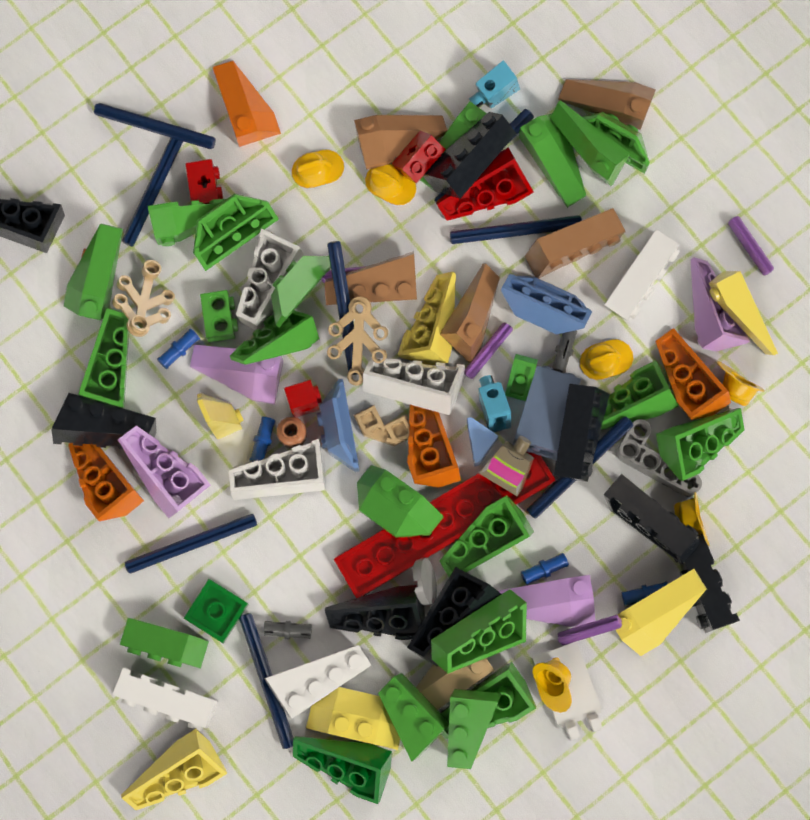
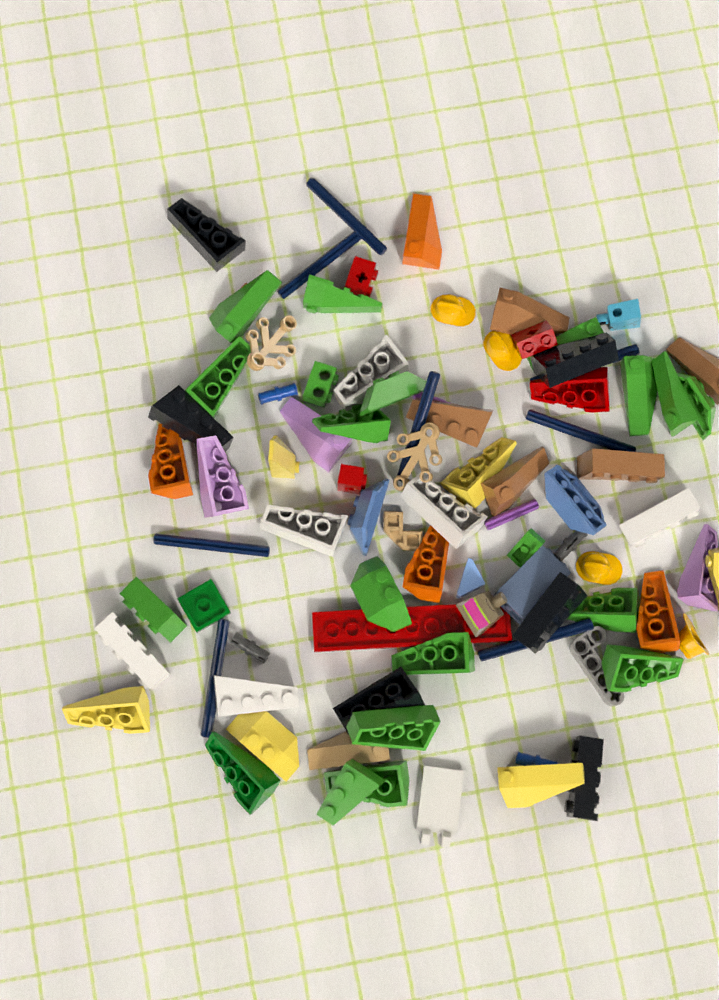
camera: 20 degrees right, 0 degrees up
(230, 227) = (363, 321): bright green wedge -> none
(262, 439) = (305, 494): blue pin -> none
(295, 425) = (331, 494): nougat head -> none
(384, 612) = (332, 673): black wedge -> none
(412, 715) = (310, 761): bright green wedge -> none
(426, 580) = (374, 661): light grey tile -> none
(494, 404) = (494, 558): medium azure torso -> none
(544, 568) = (468, 703): blue pin -> none
(553, 684) = (428, 795): yellow piece -> none
(559, 601) = (466, 734): lavender wedge -> none
(589, 630) = (478, 767): medium lavender axle -> none
(651, 519) = (569, 708): black wedge -> none
(689, 514) = (599, 722): yellow piece -> none

